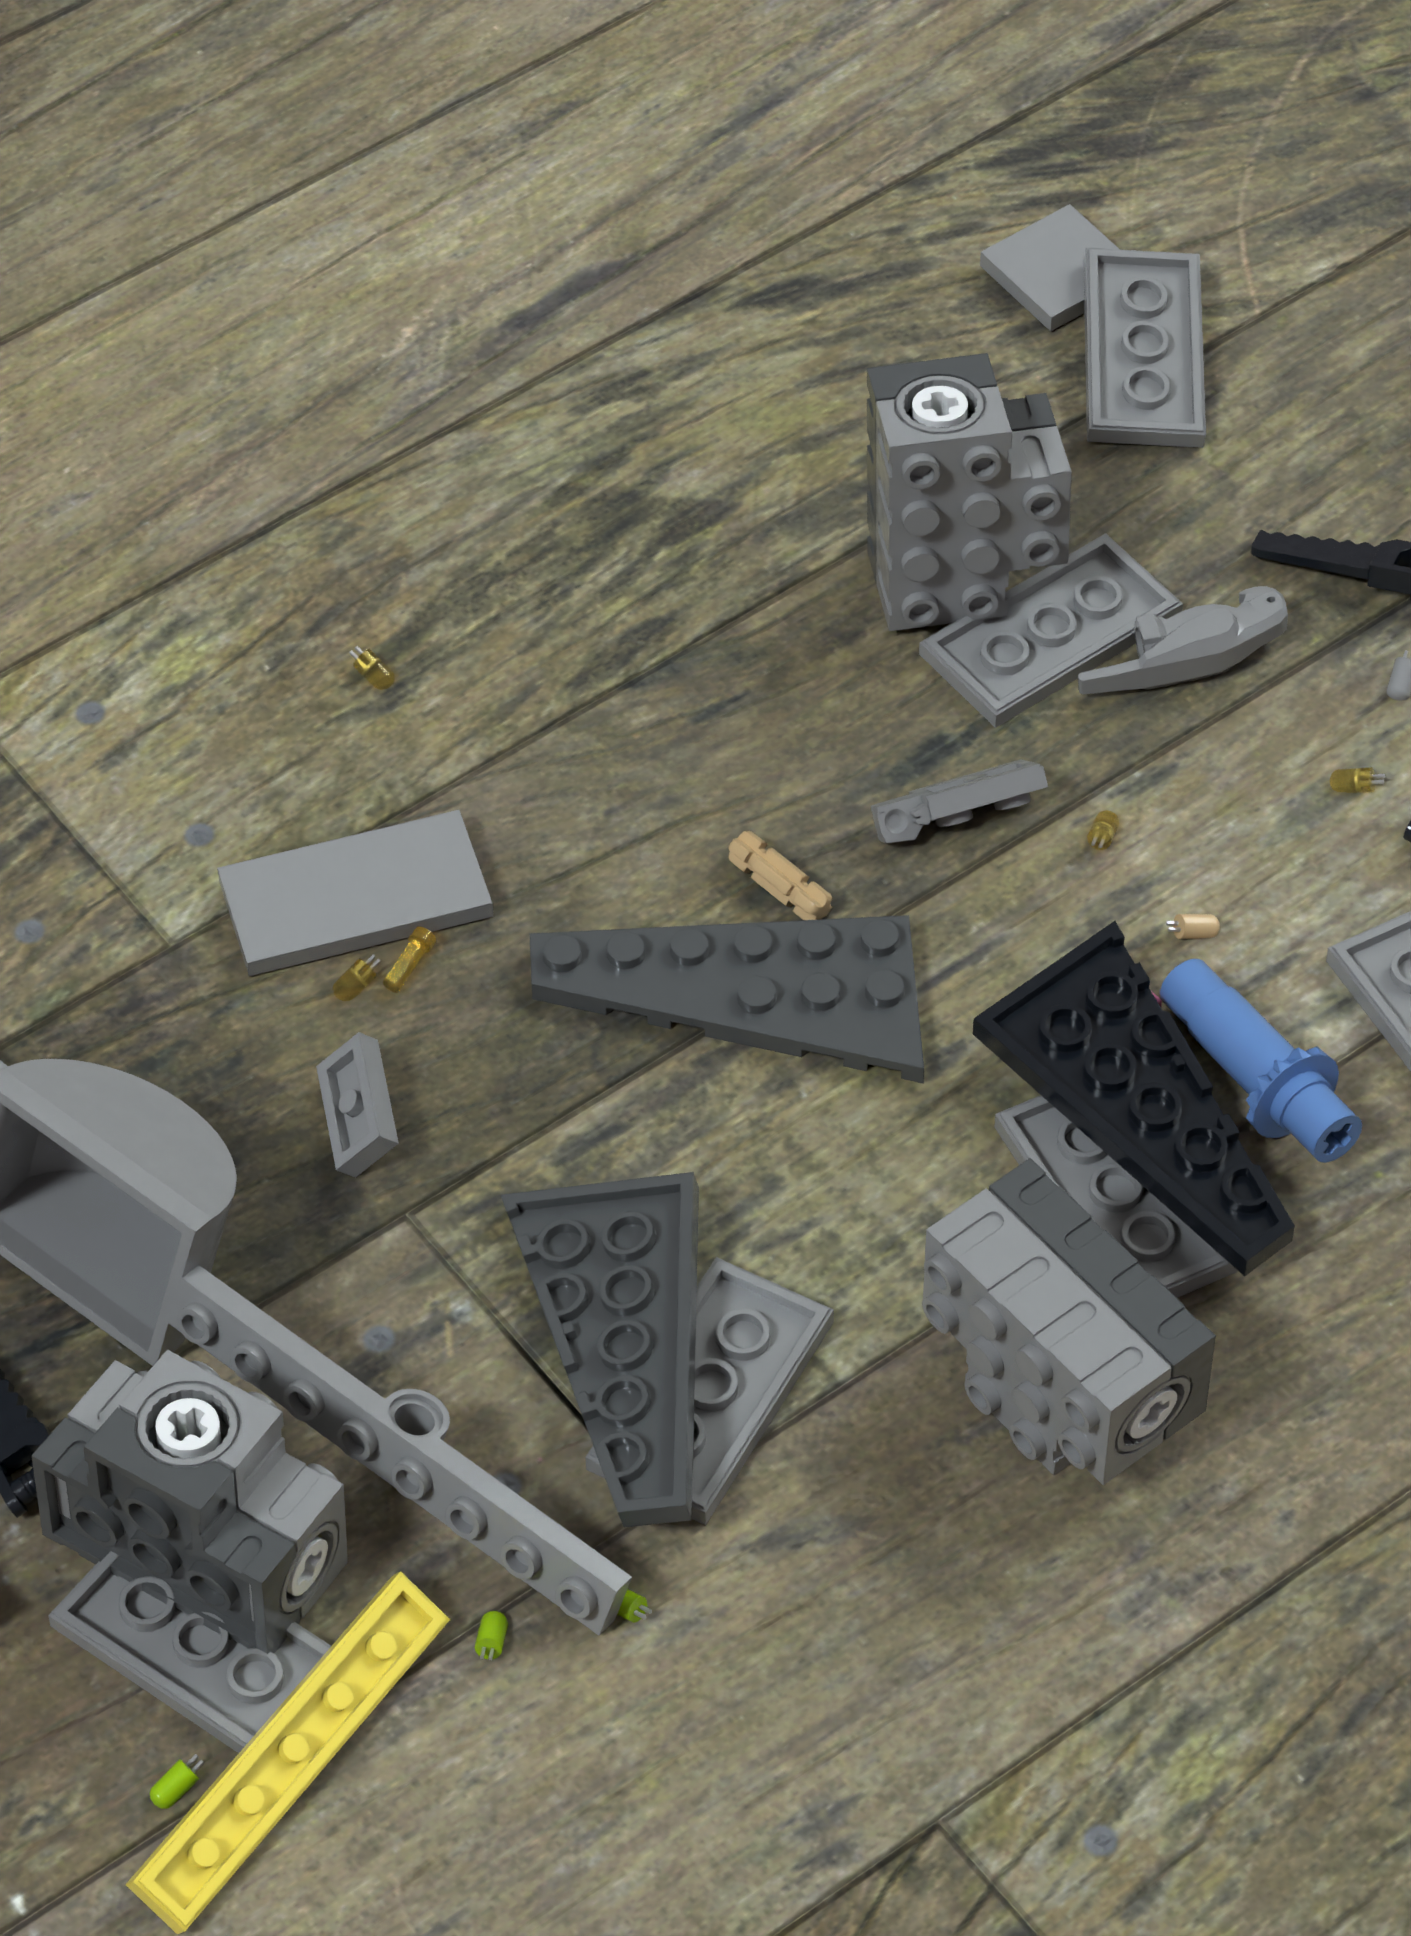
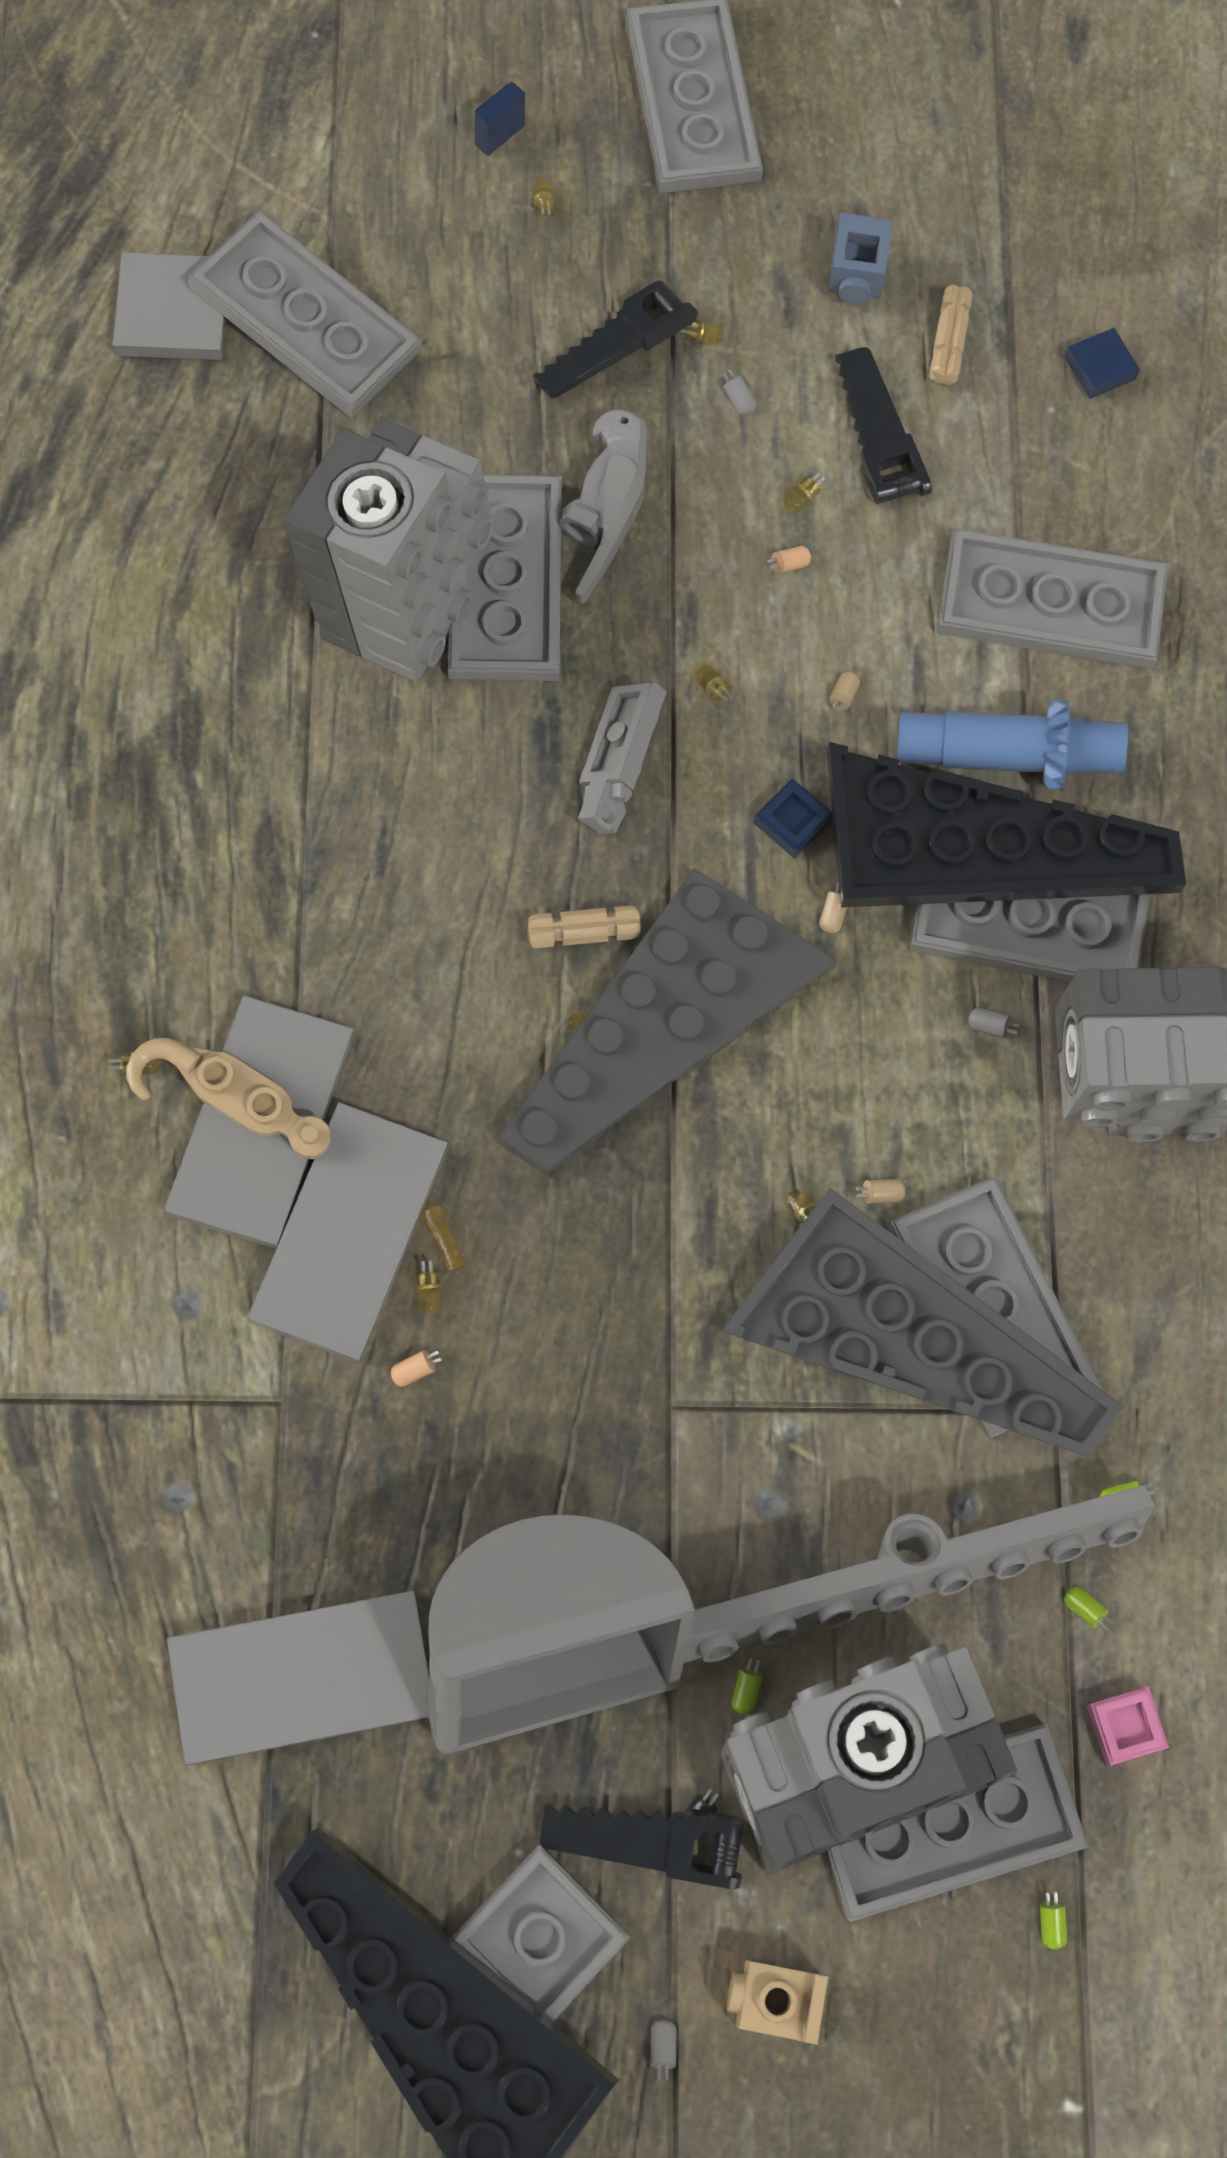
camera: 60 degrees left, 20 degrees up
(277, 1012) = (414, 1368): none -> light nougat piece
(287, 1753) = (1098, 1828): light yellow tile -> none
(357, 1105) = (562, 1375): light grey plate -> none
(398, 771) = (248, 1180): none -> light grey tile
(399, 731) = (234, 1092): none -> tan piece
(404, 1730) = (1127, 1726): none -> bright pink tile
(743, 1242) = (882, 1191): none -> tan piece
(969, 1051) = (832, 913): none -> tan piece
(1027, 954) = (793, 818): none -> dark blue tile
(1281, 810) = (790, 559): none -> light nougat piece

